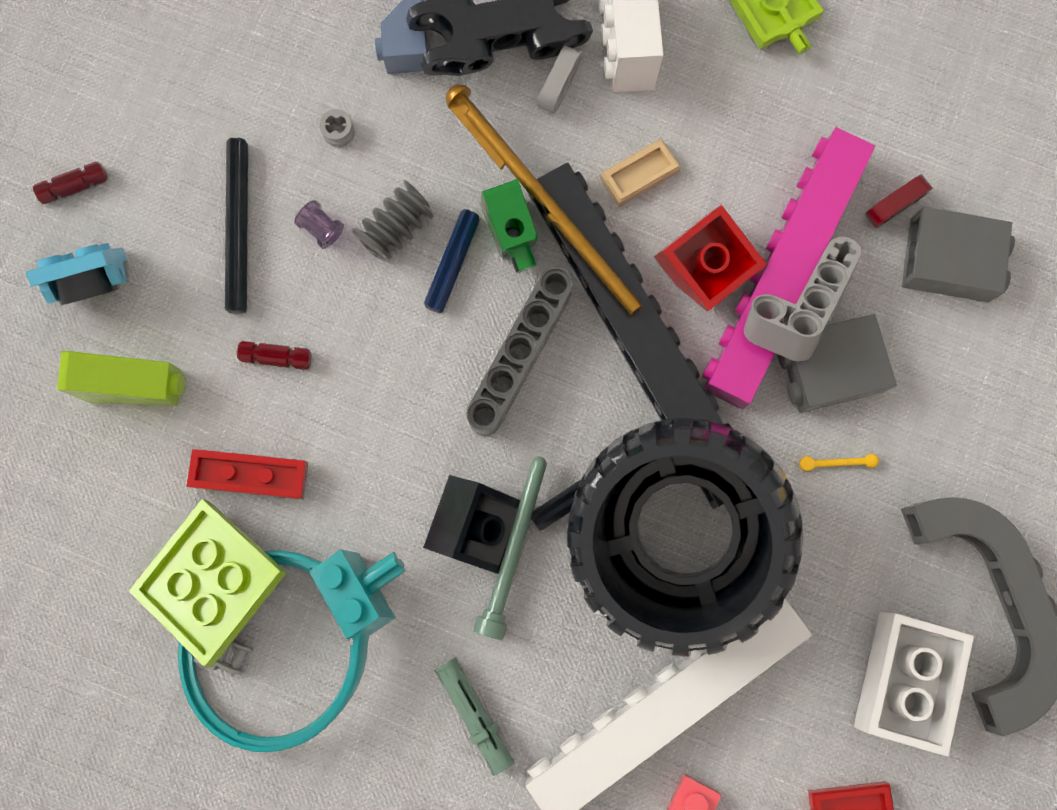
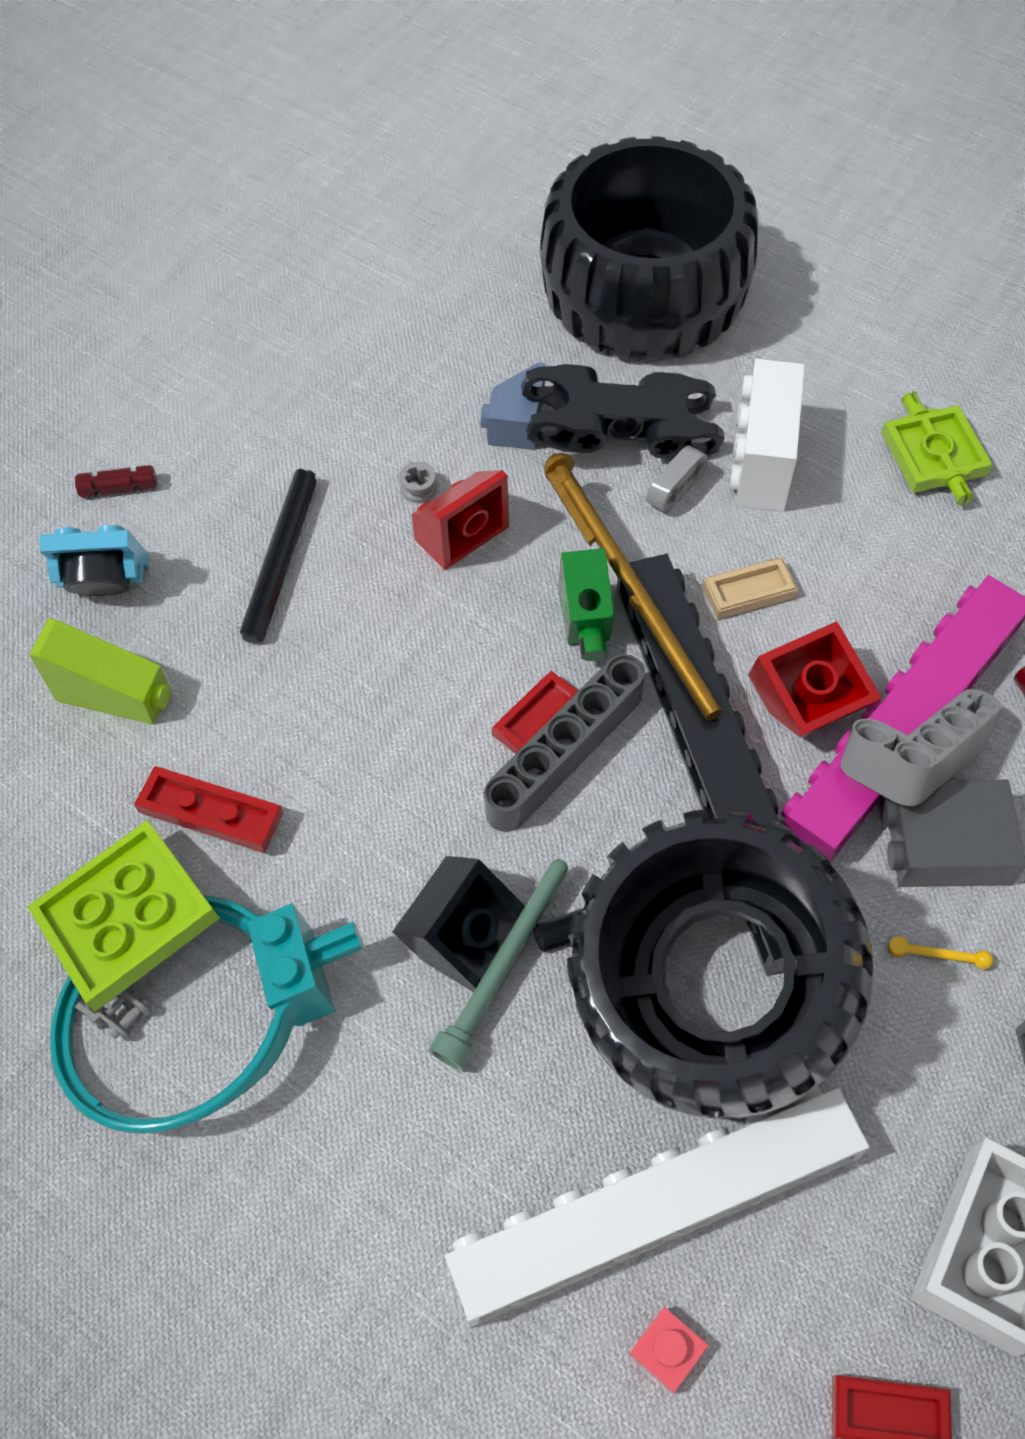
camera: 15 degrees right, 20 degrees down
(274, 355) = (279, 691): dark red axle -> none
(307, 219) = (361, 567): clear purple bush -> none
(385, 158) = (463, 517): none -> red slope
(394, 222) = (453, 578): dark grey piece -> none
(451, 261) = (509, 635): dark blue axle -> none
(475, 717) = (407, 1179): sand green pin -> none
(490, 328) = (533, 711): none -> red tile

